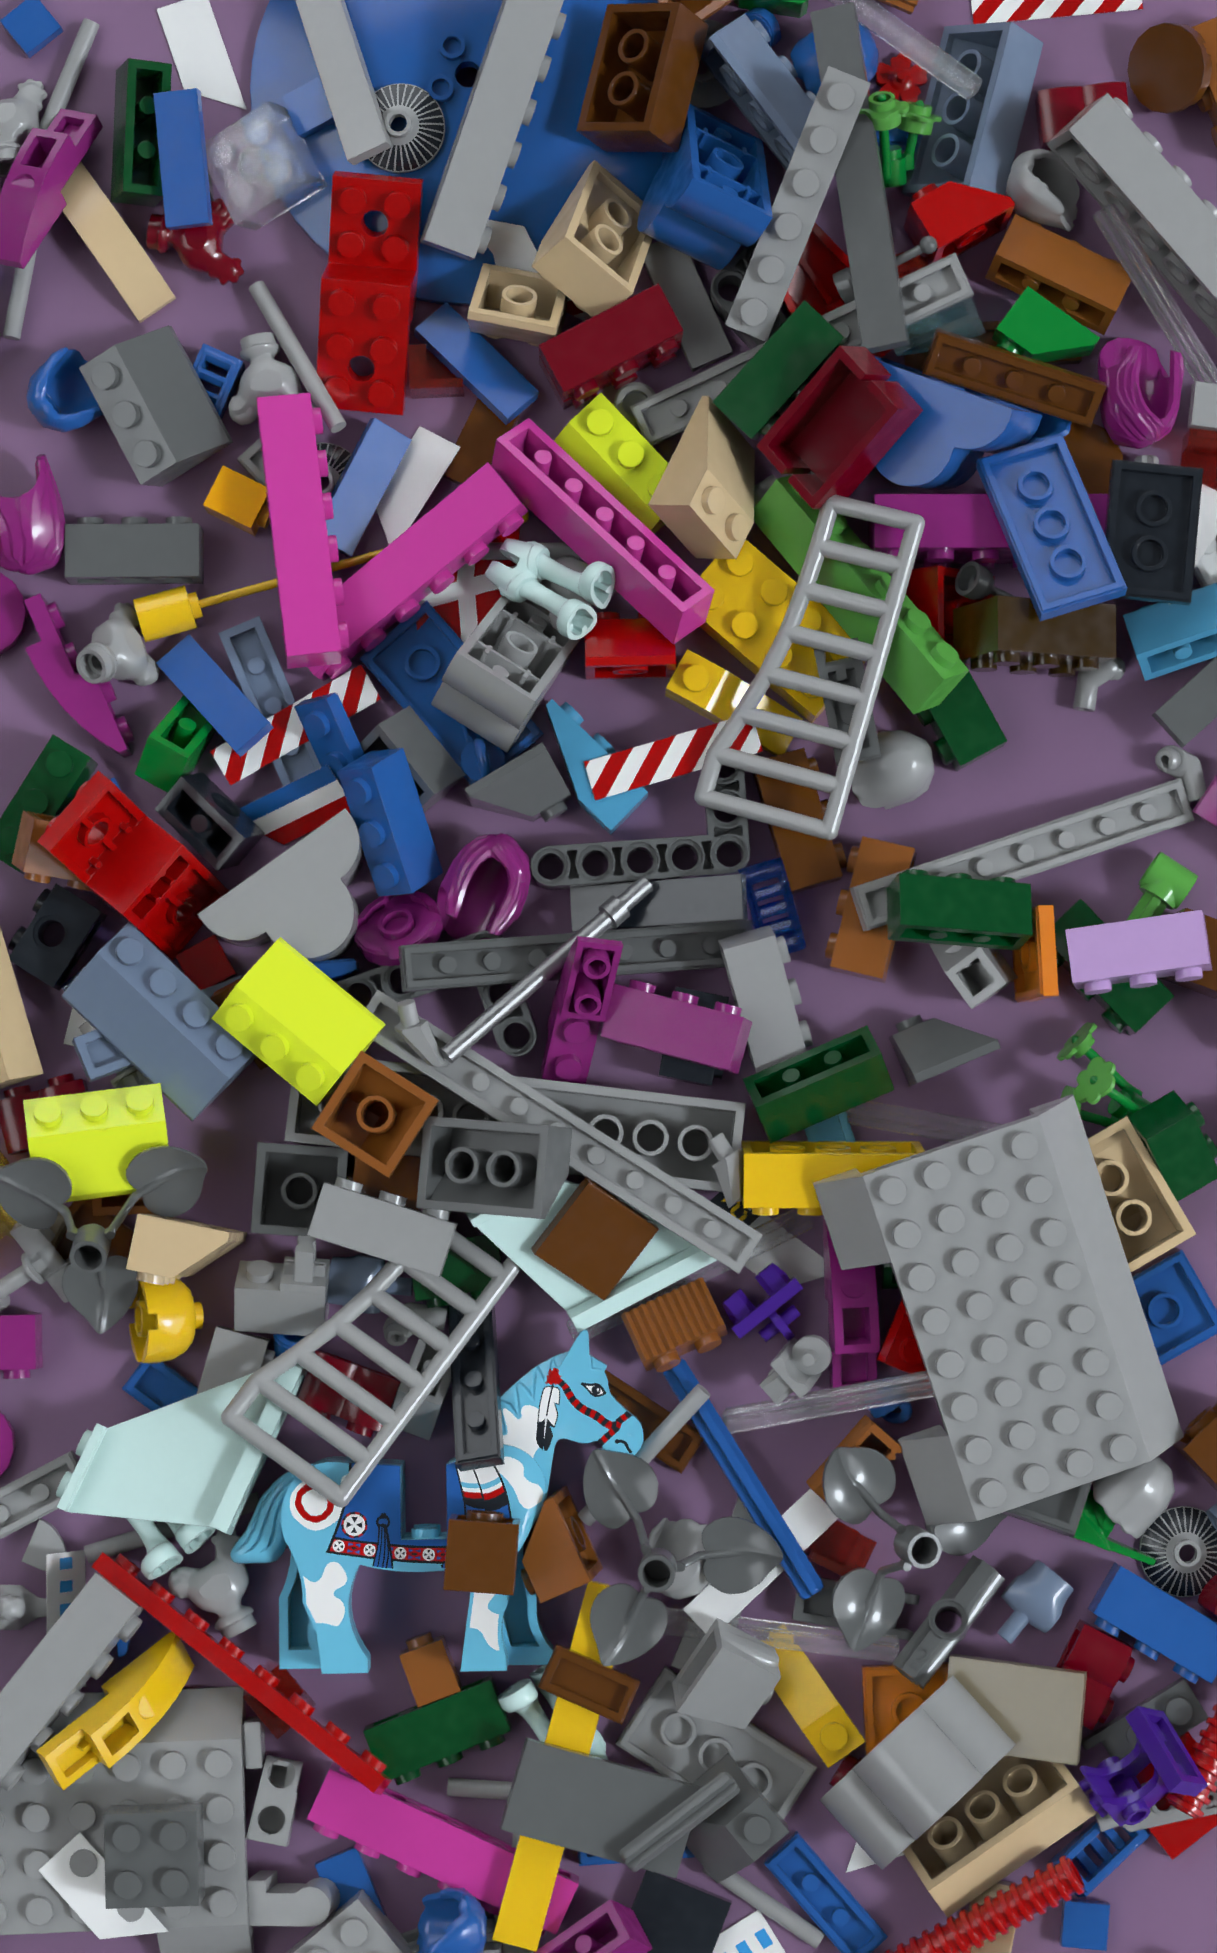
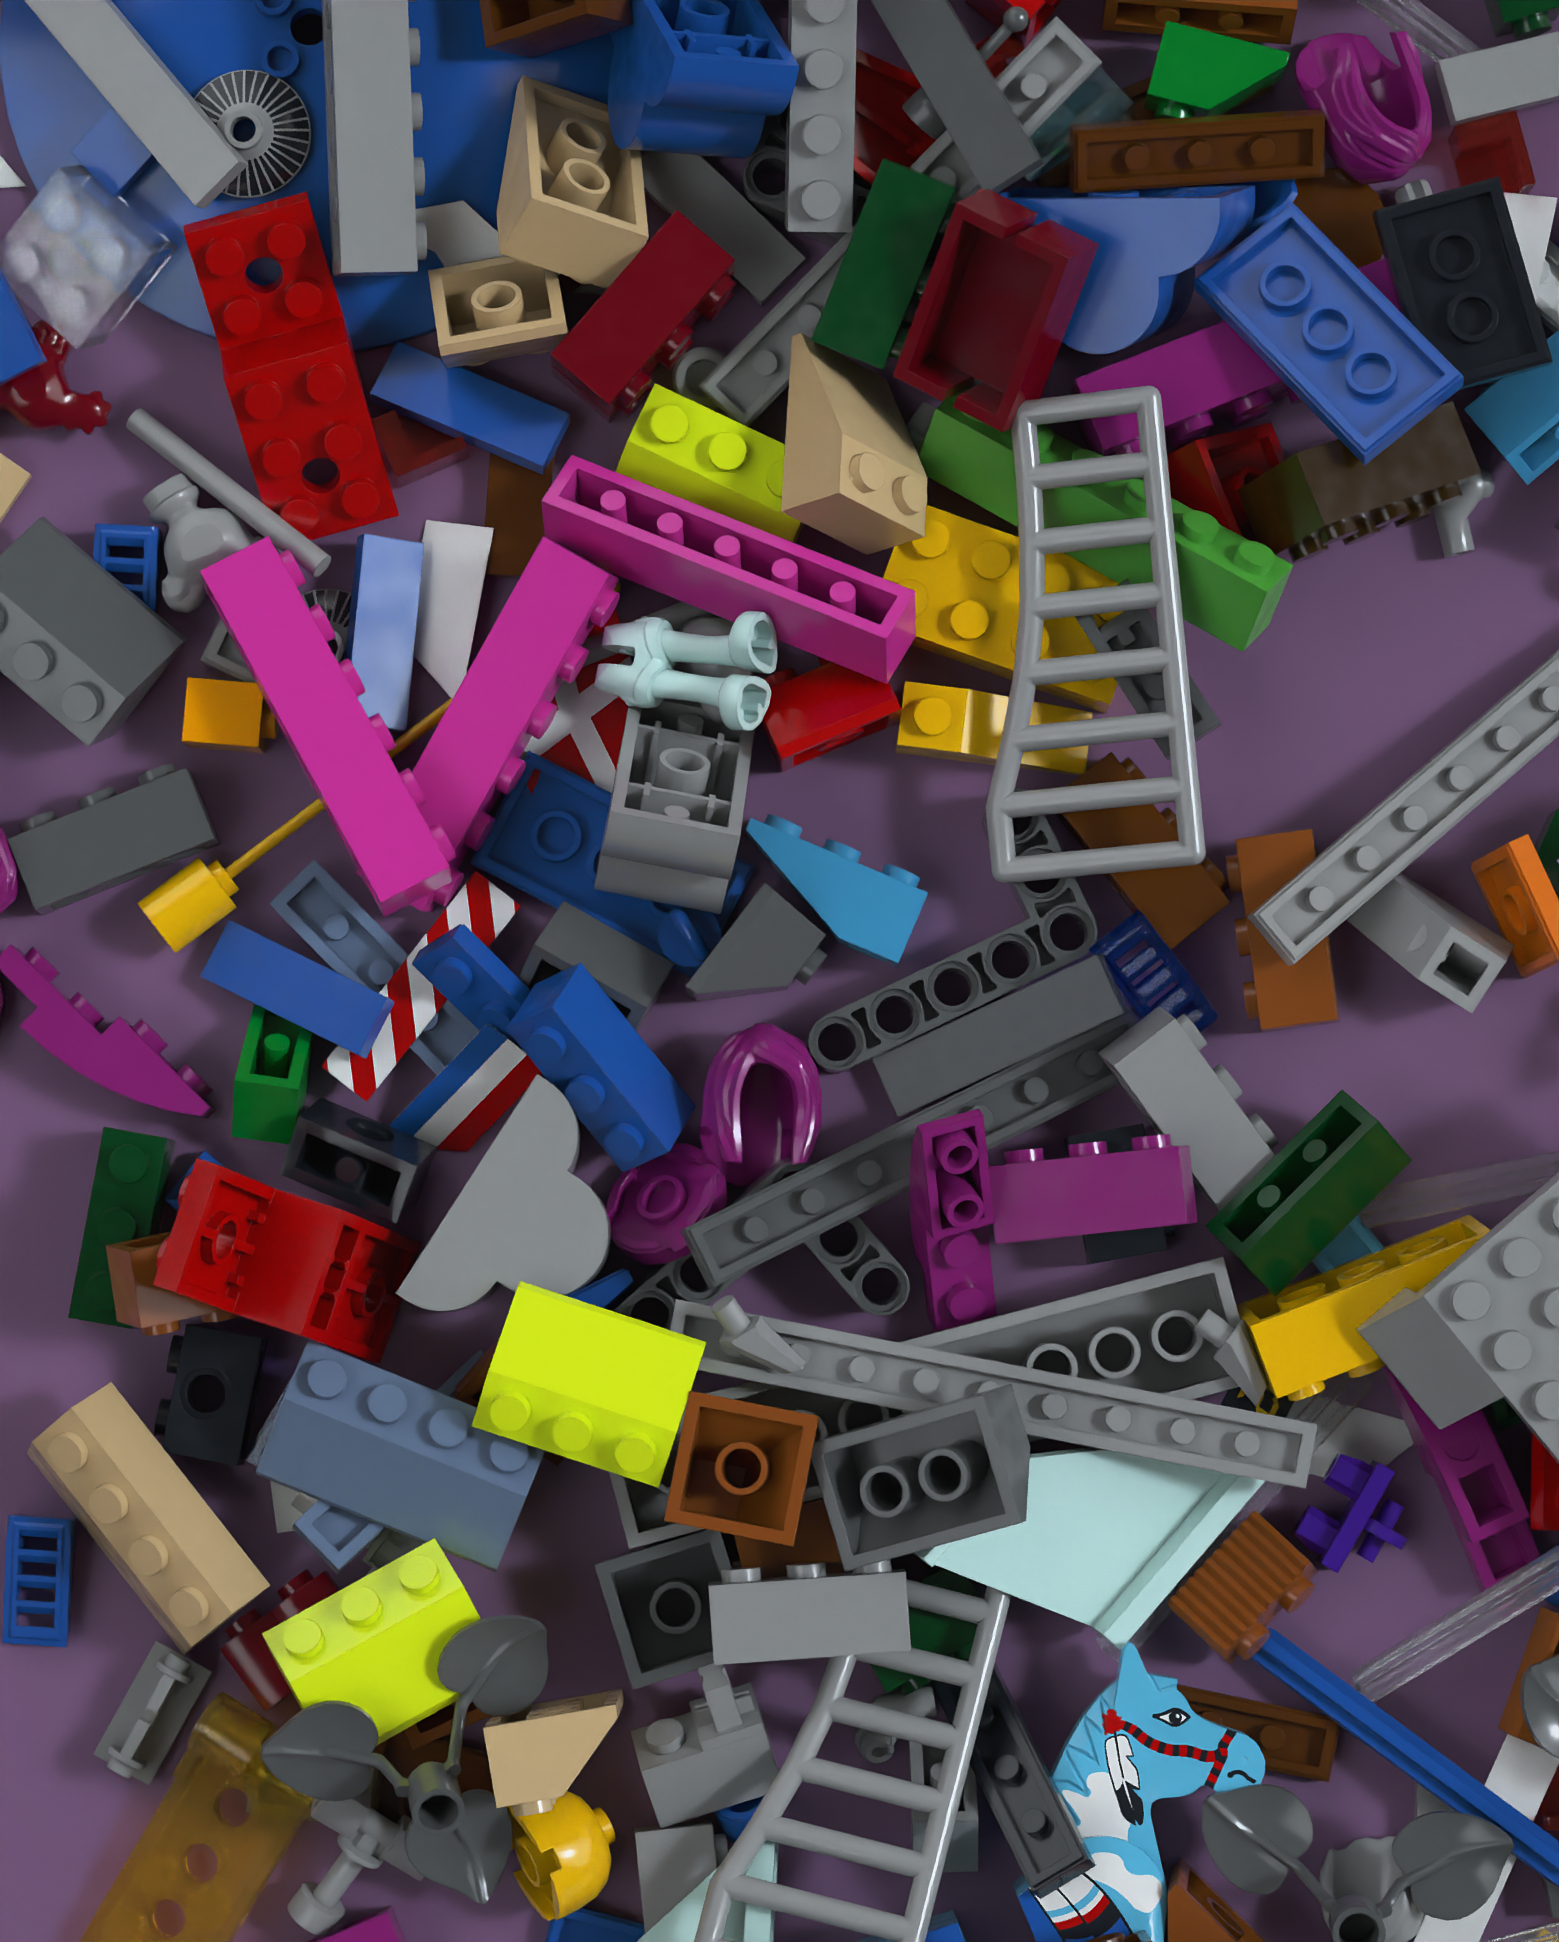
camera: 20 degrees left, 0 degrees up
(117, 651) = (144, 980): light grey animal -> none
(206, 963) = (427, 1351): red tile -> none
(329, 1402) = (824, 1873): dark red brick -> none
(353, 1273) = (790, 1690): sand blue piece -> none
(594, 1238) = (1094, 1516): reddish brown tile -> none
(611, 913) = (944, 1073): flat silver bar -> none
(661, 759) = (928, 842): sticker -> none
(664, 1433) = (1285, 1738): light grey bar -> none
(797, 1367) = (1428, 1581): light grey hips -> none
(898, 775) = (1253, 736): light grey hair -> none
(936, 1047) = (1445, 1083): dark grey slope -> none
(959, 910) = (1406, 889): dark green brick -> none
(963, 725) = (1311, 639): dark green brick -> none
(976, 582) = (1254, 441): dark grey hinge -> none

